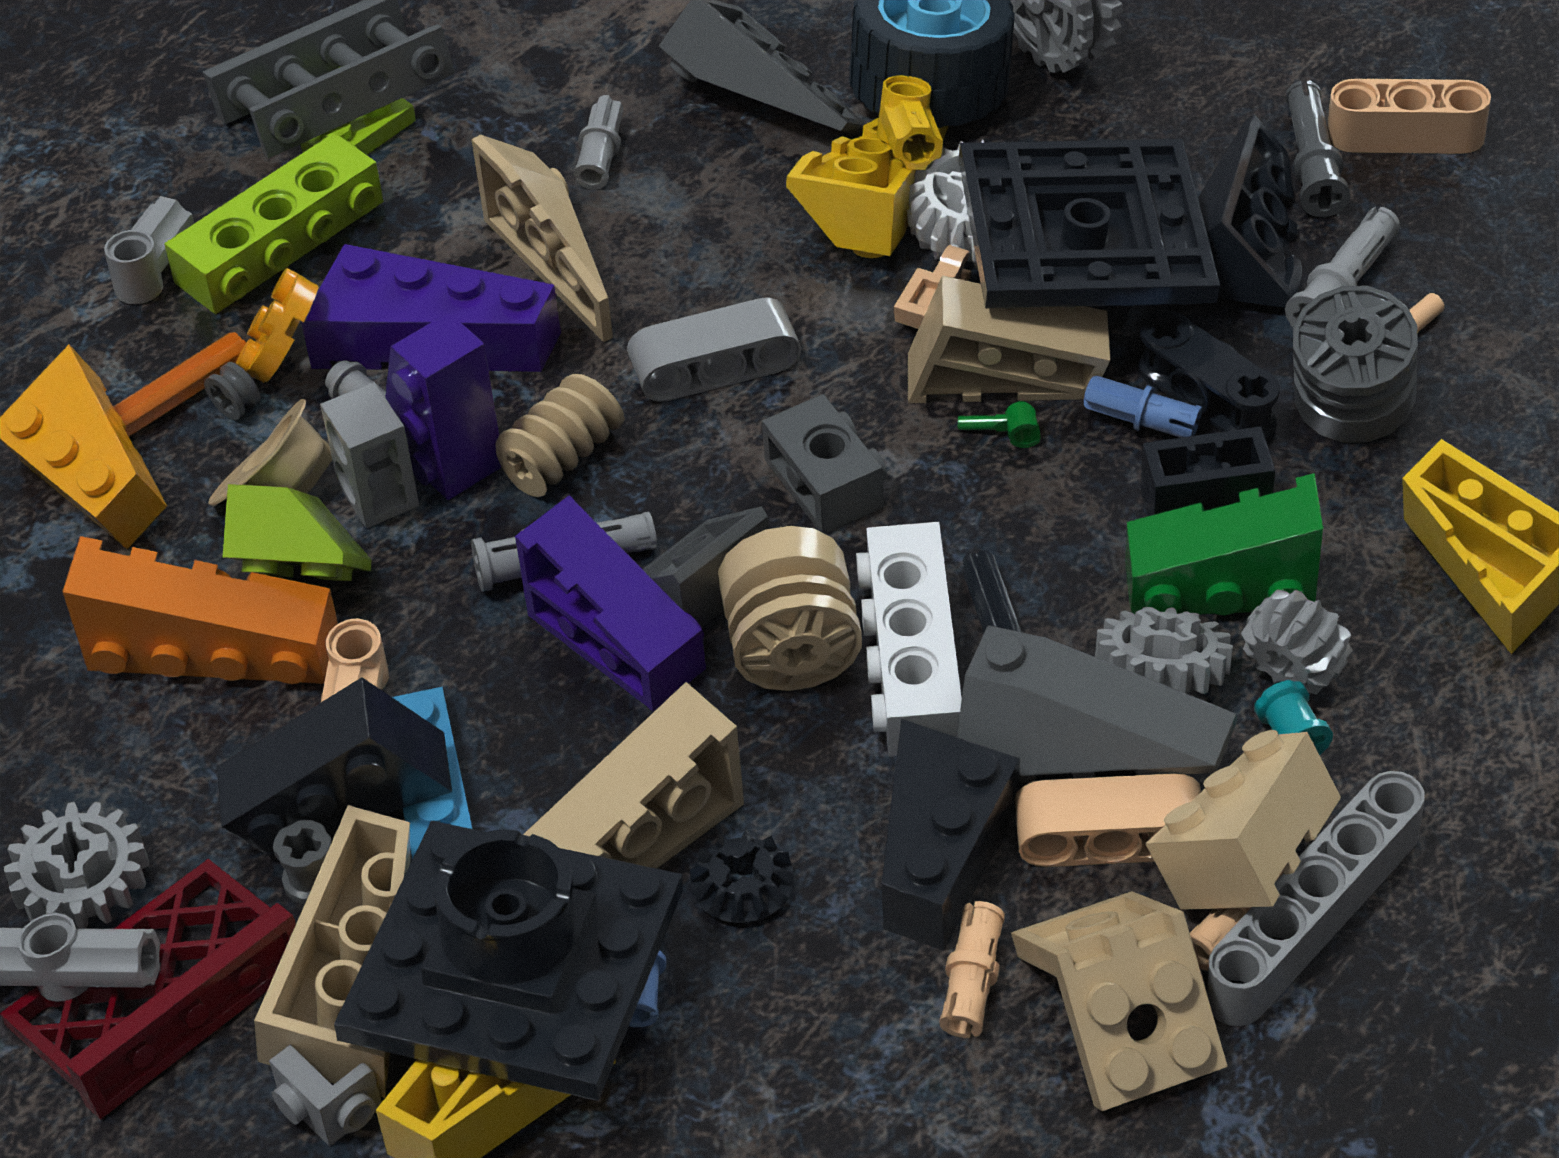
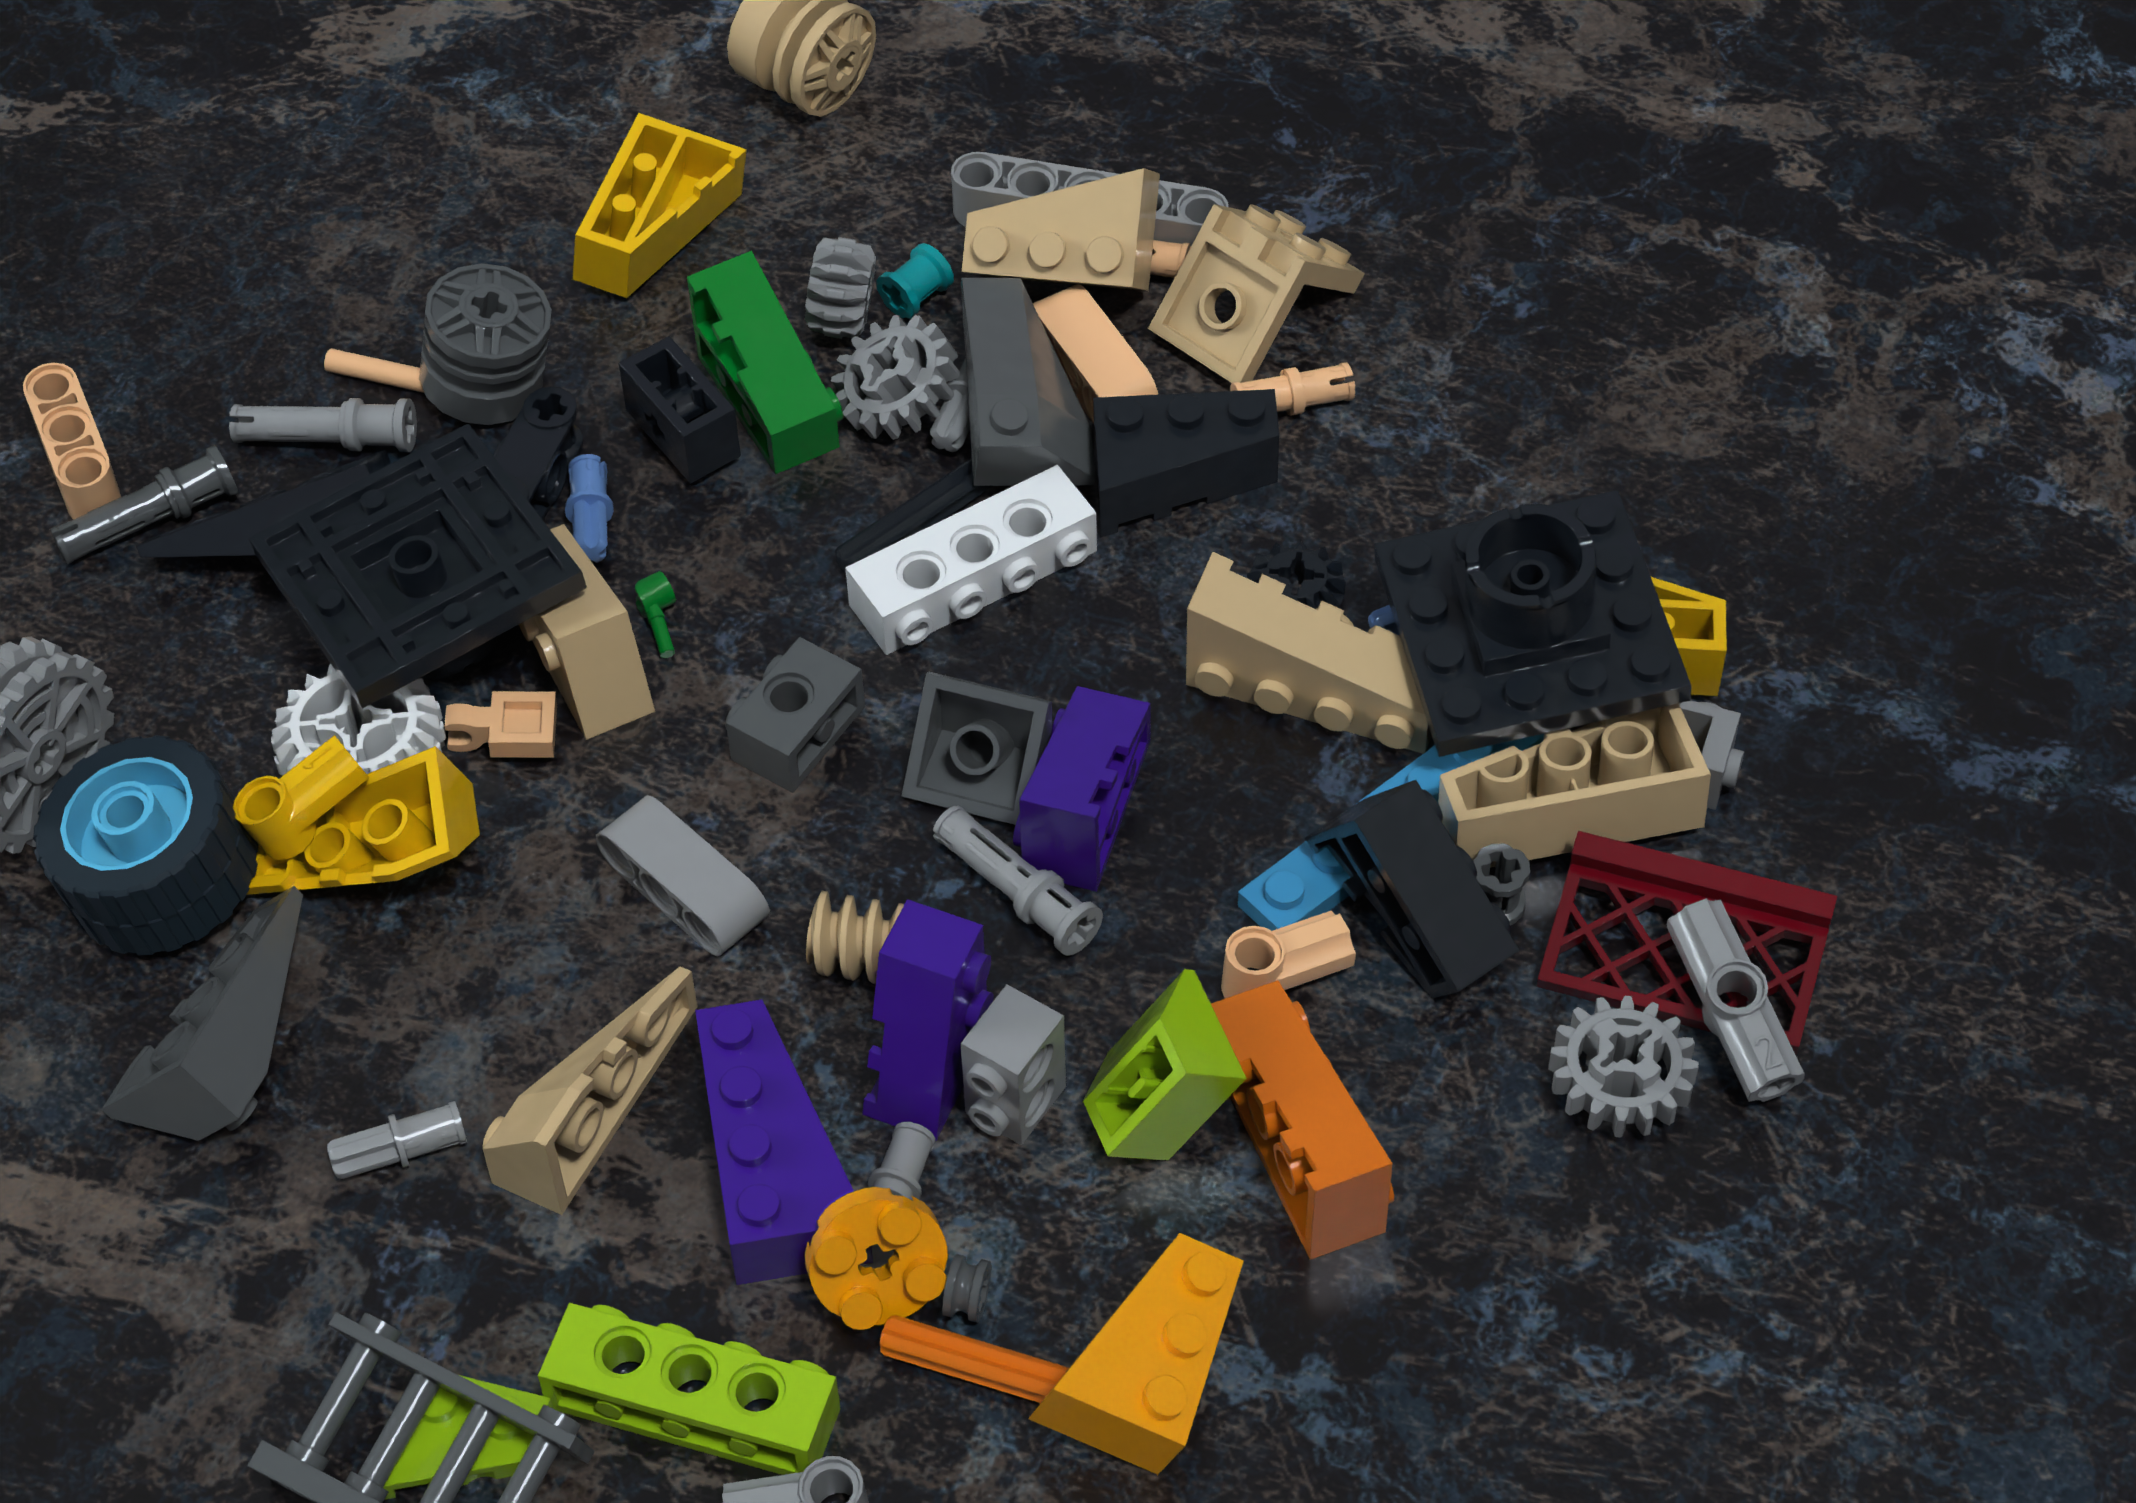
camera: 120 degrees left, 5 degrees up
(289, 458) = (1057, 1185): tan piece -> none
(789, 608) = (1016, 625): tan wheel -> none

